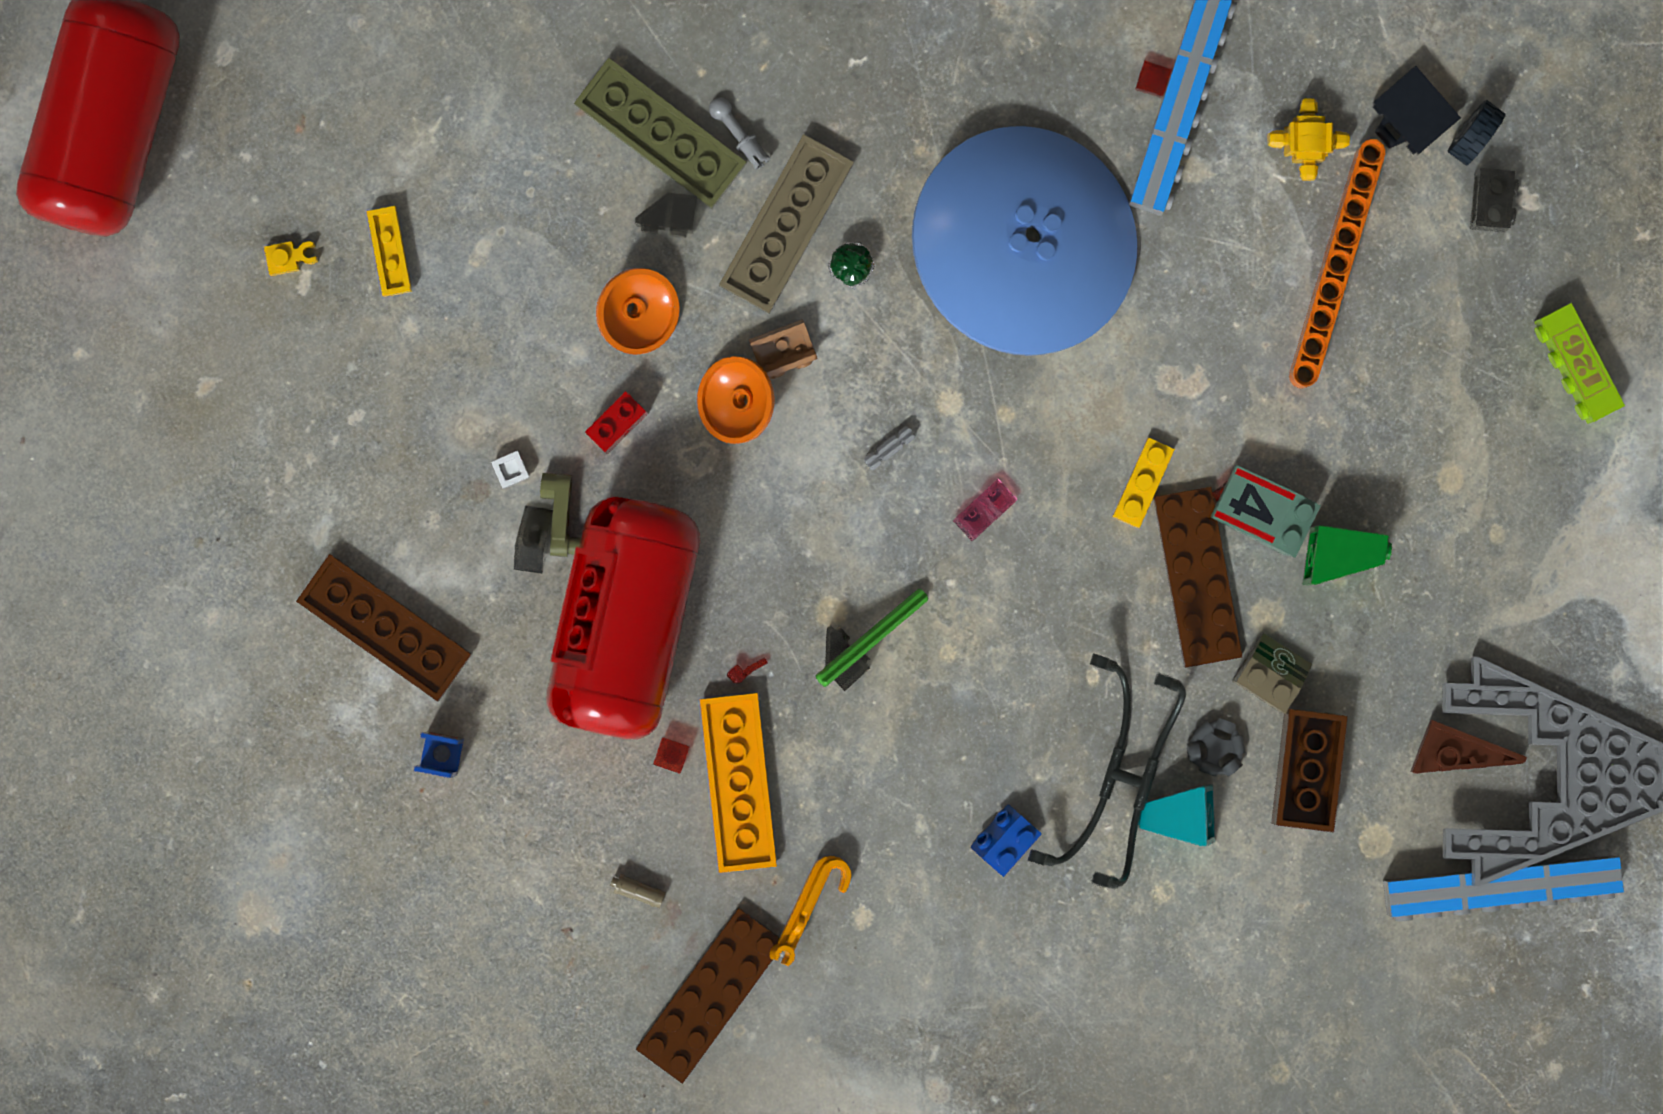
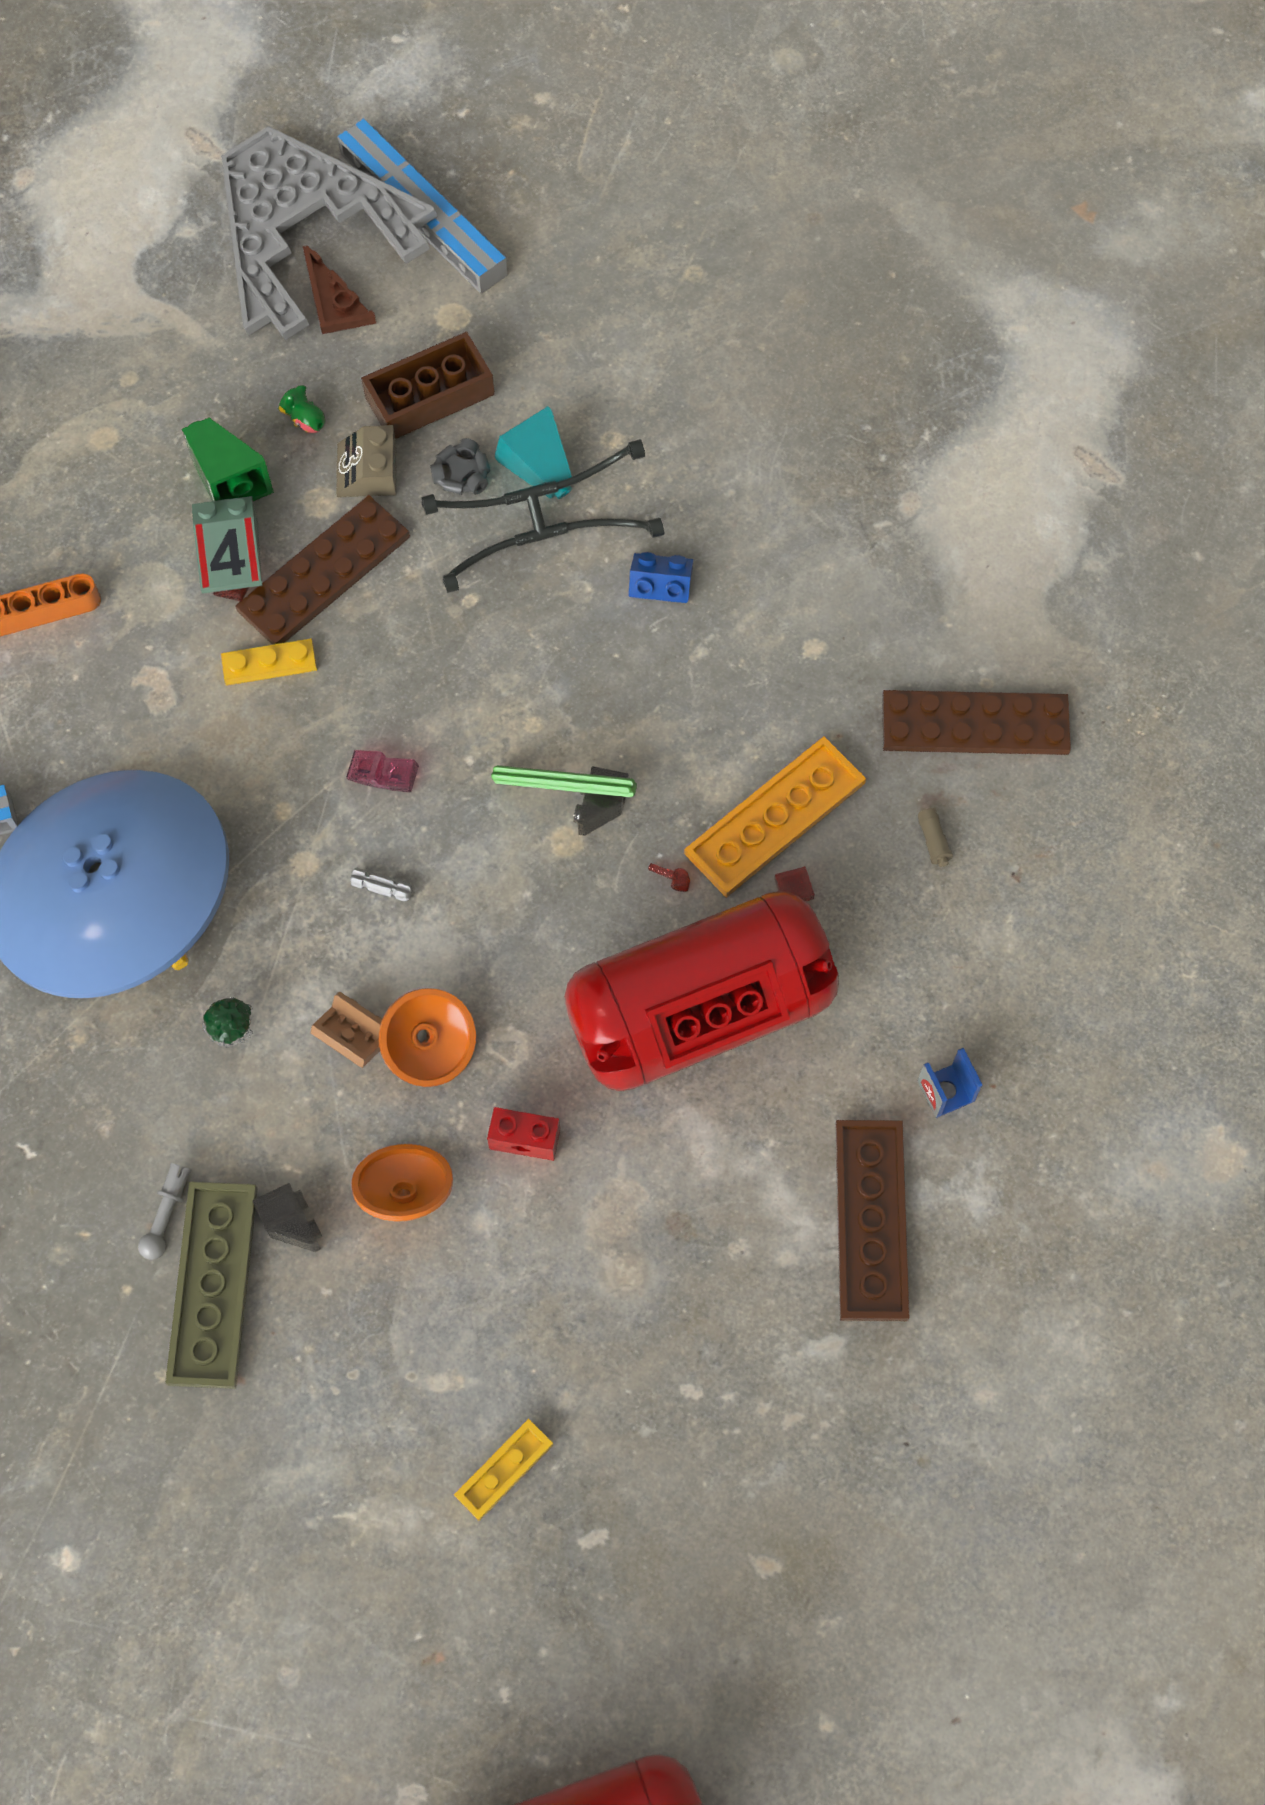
camera: 125 degrees left, 20 degrees down
(284, 257) = (581, 1574): yellow plate -> none
(510, 469) = (637, 1203): white plate -> none
(533, 539) = (688, 1136): clear smoke slope -> none
(559, 488) = (624, 1144): olive beam -> none
(786, 224) = (227, 1108): dark tan plate -> none
(806, 903) = (839, 690): light orange piece -> none
(1355, 653) = (302, 412): none -> green animal

